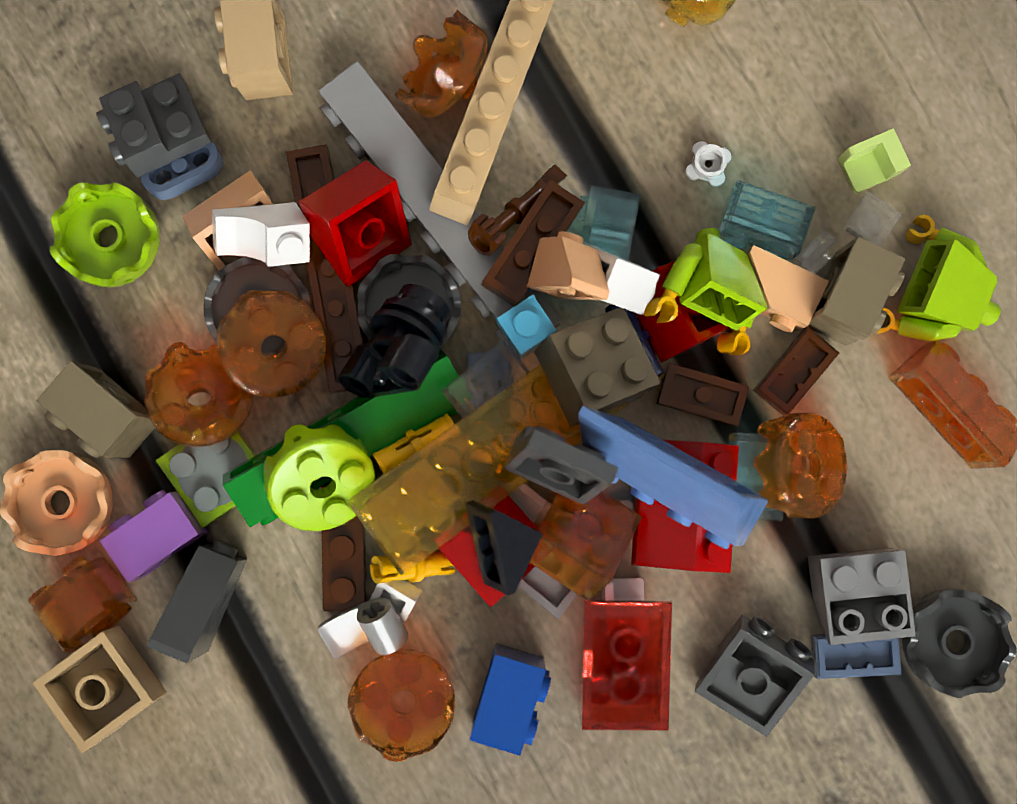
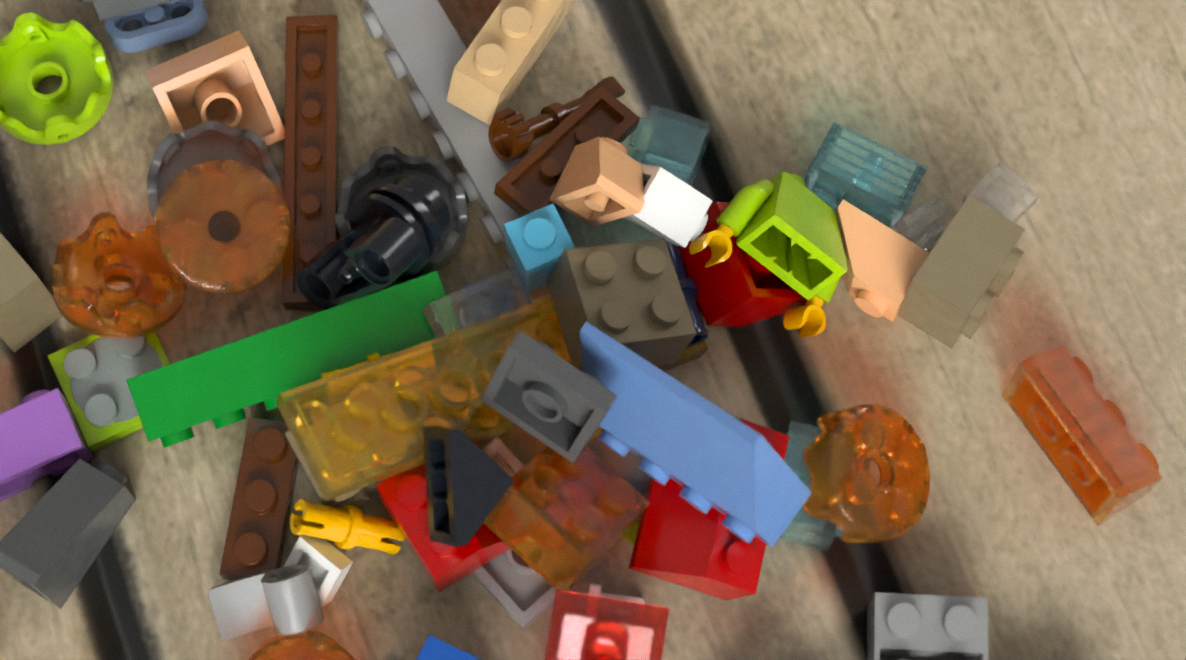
camera: 10 degrees right, 15 degrees down
(264, 232) = (237, 96): white arch -> none
(306, 457) = (219, 361): lime plate -> none
(357, 221) = (356, 103): red slope -> none
(702, 395) = (755, 377): reddish brown plate -> none
(708, 152) = (806, 91): white plate -> none
(796, 371) = (881, 364): reddish brown plate -> none
(874, 161) = (1011, 128): yellowish green panel -> none
(947, 289) = (1083, 291): lime torso -> none

